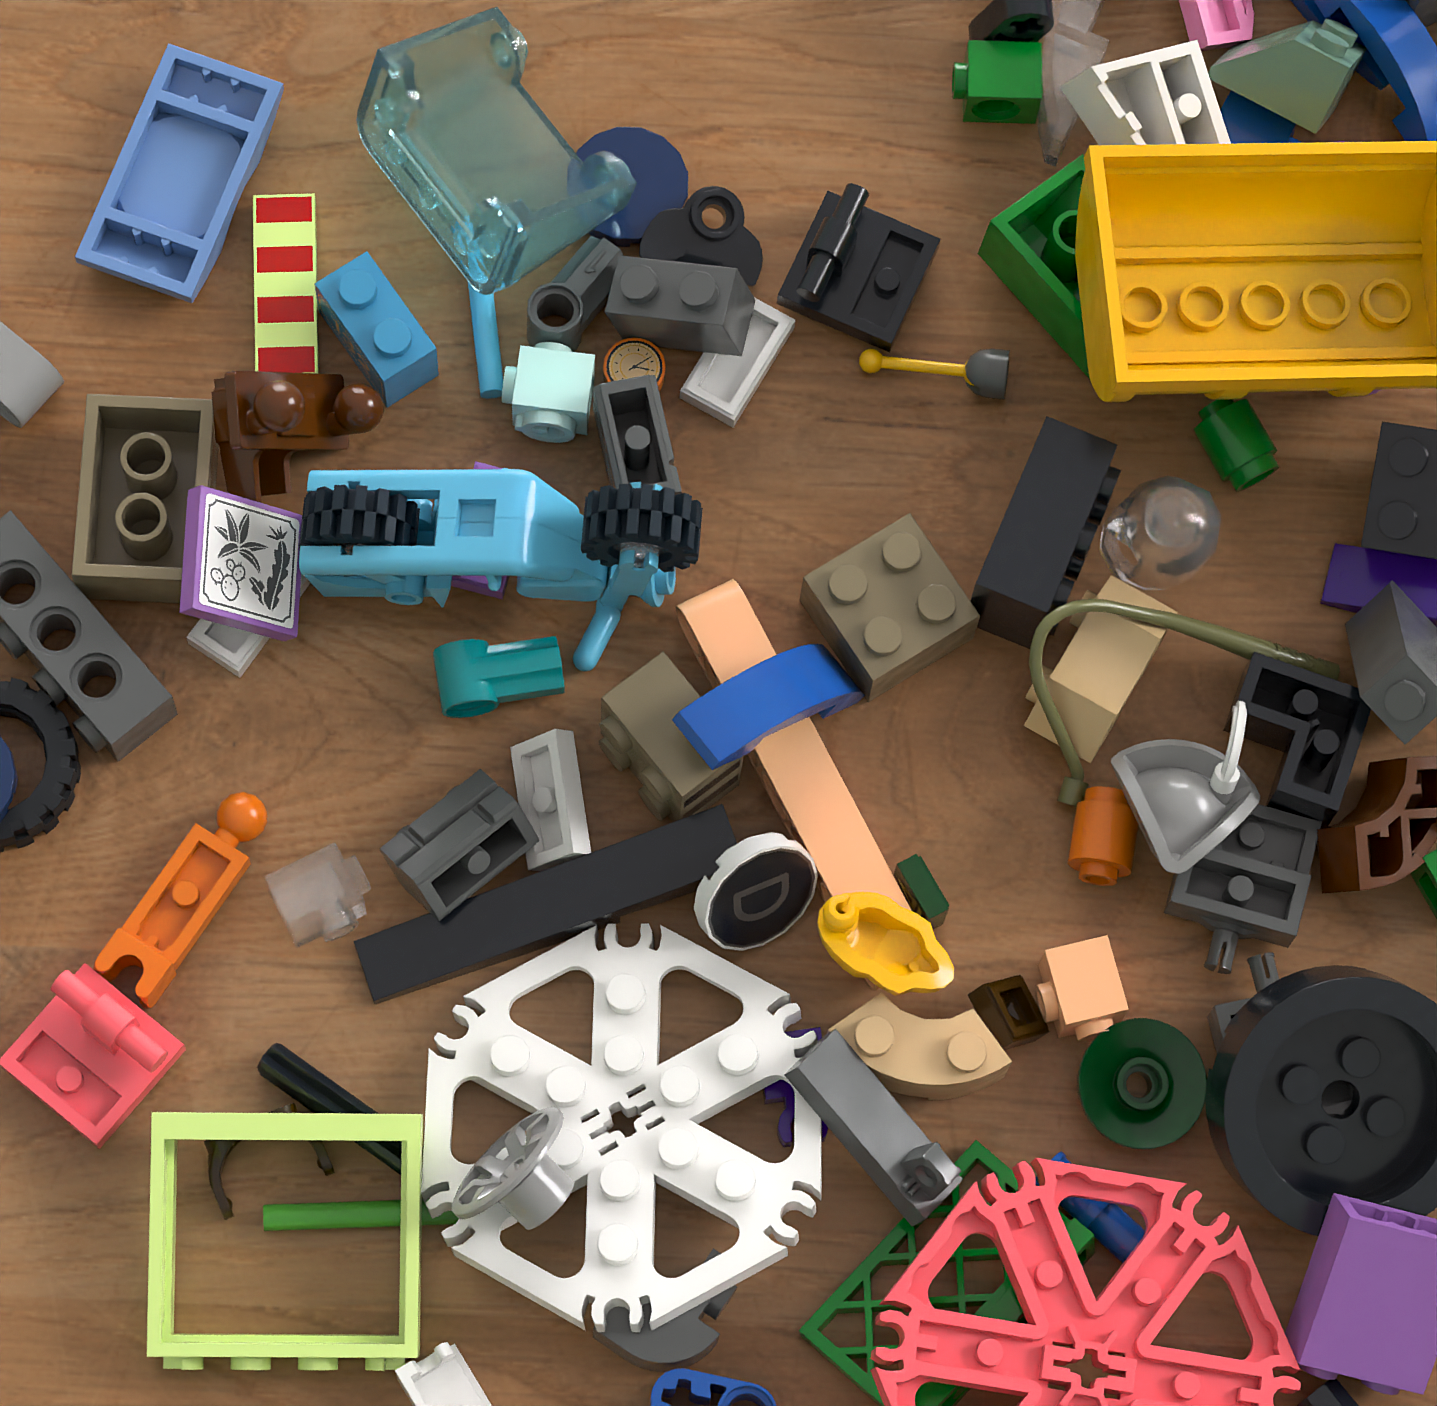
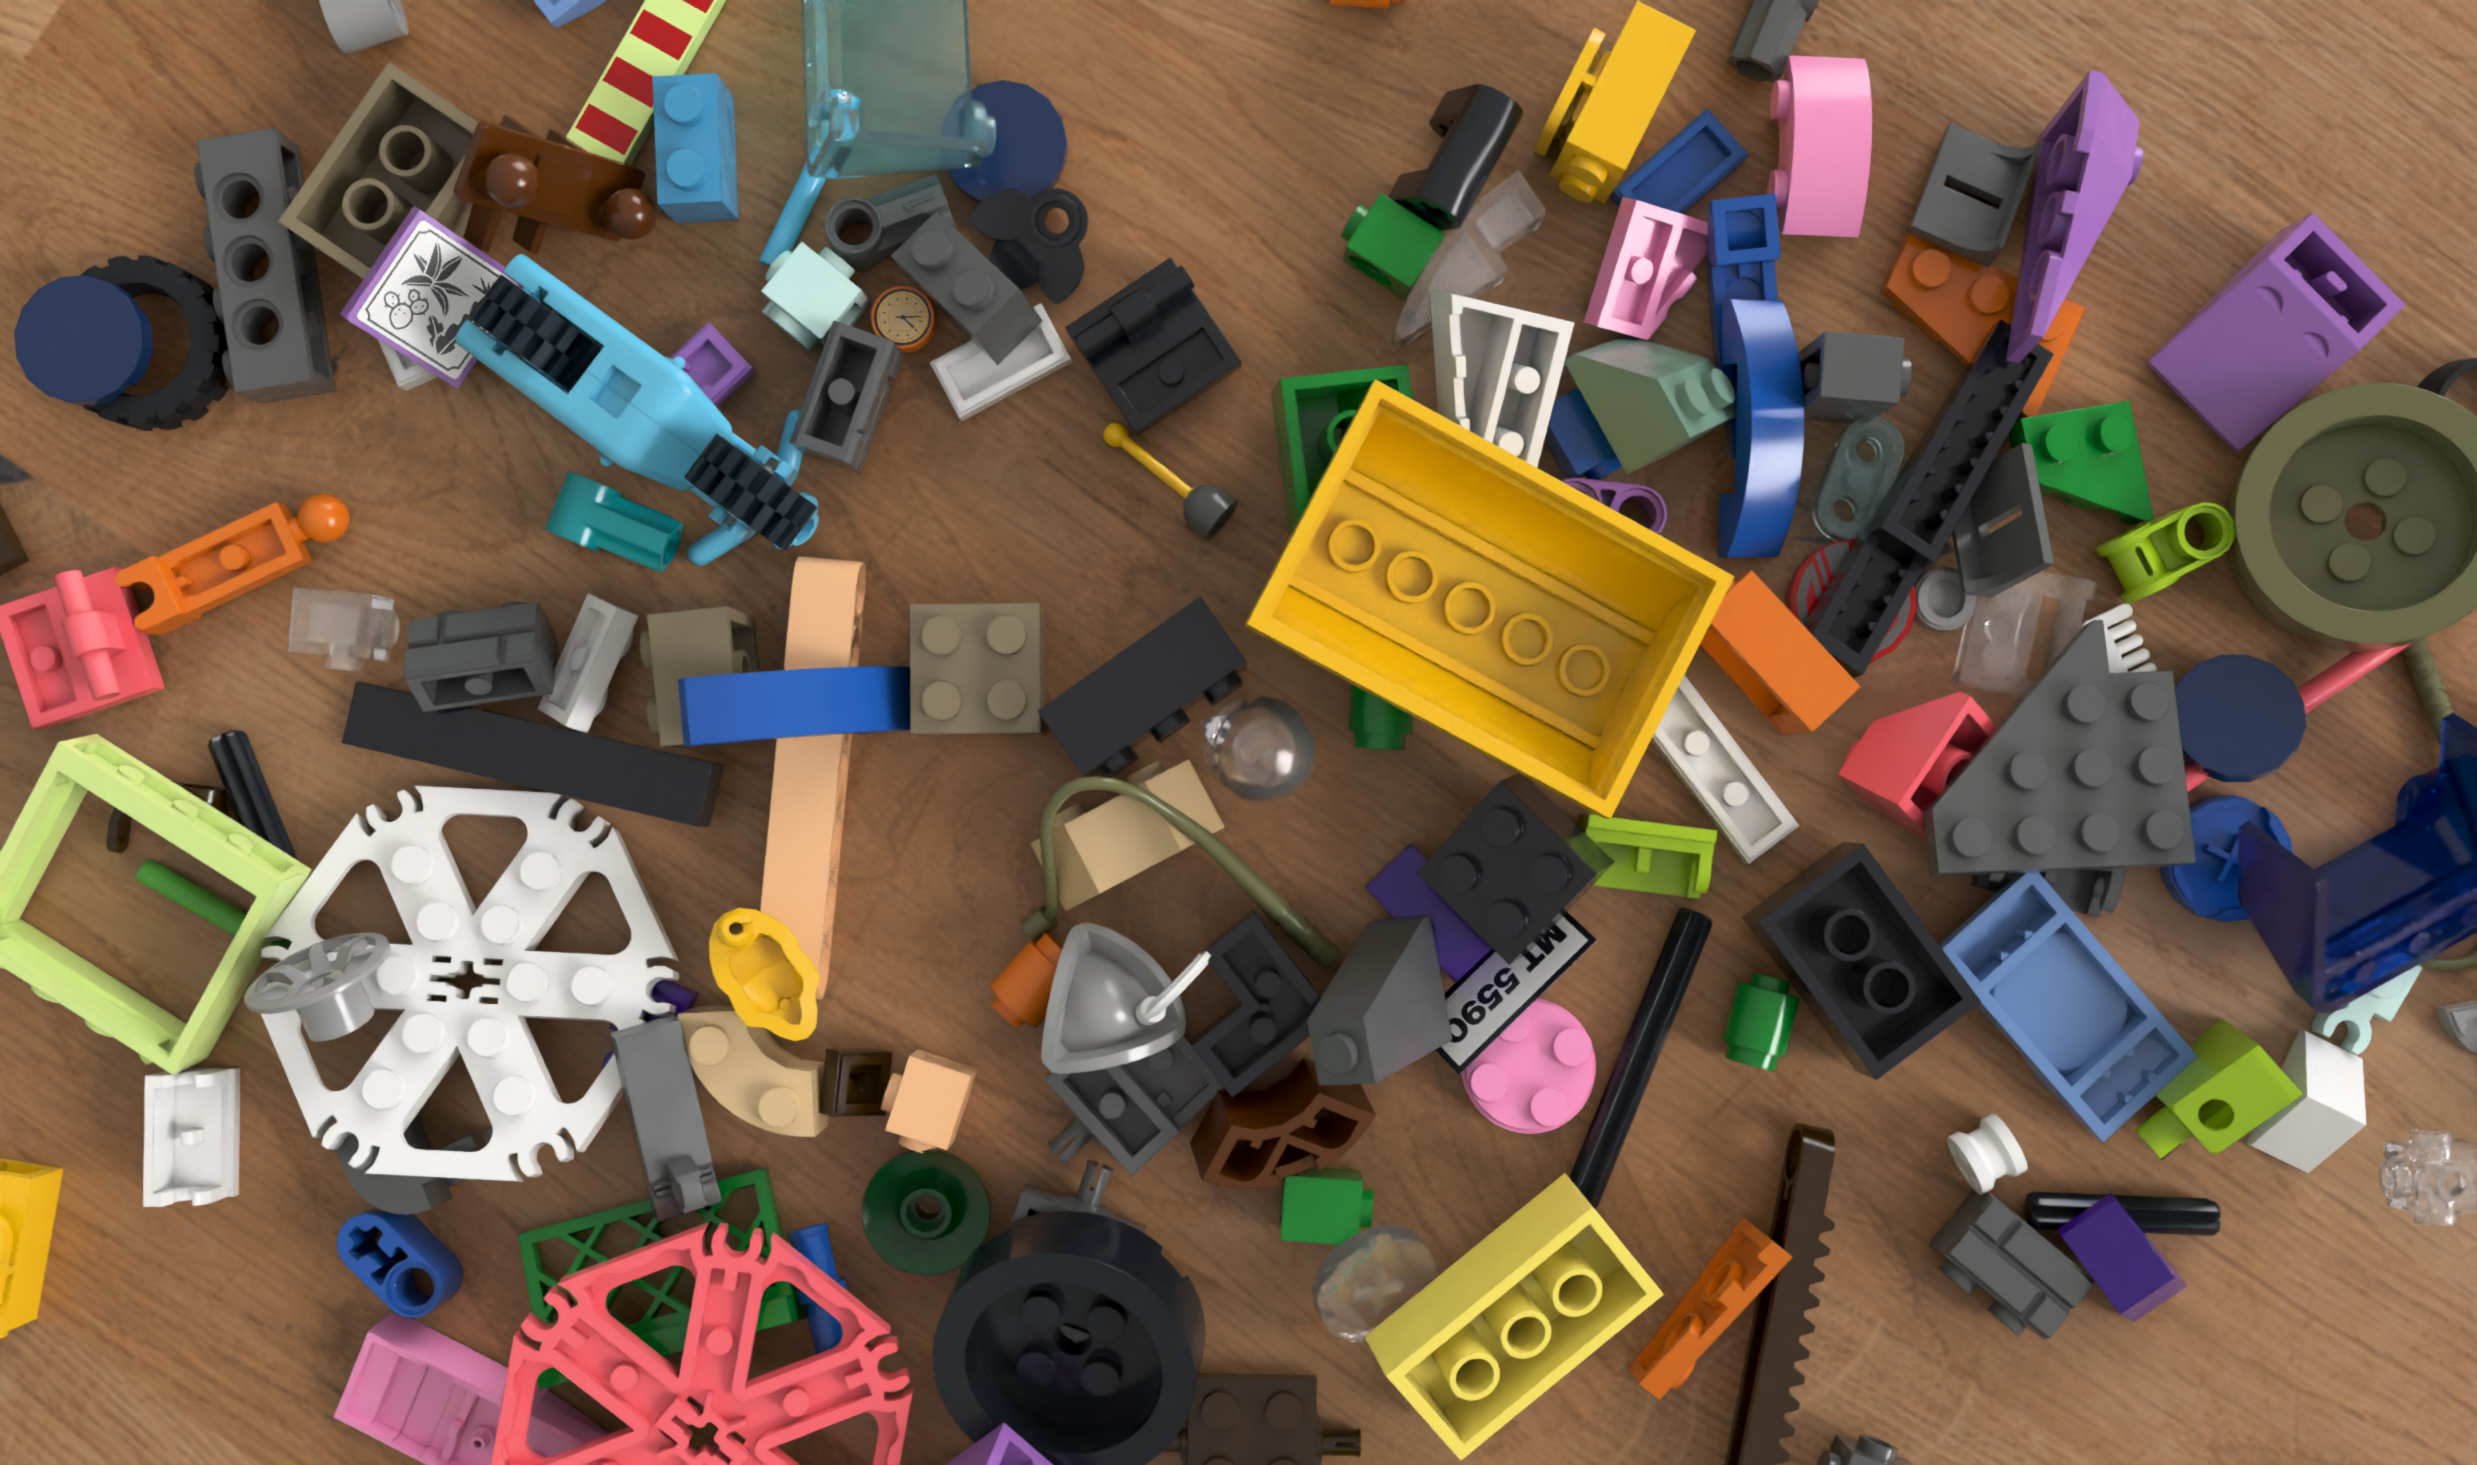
camera: 40 degrees right, 15 degrees up
(756, 891) = (698, 853): tile -> none
(921, 890) = (847, 935): dark green tile -> none

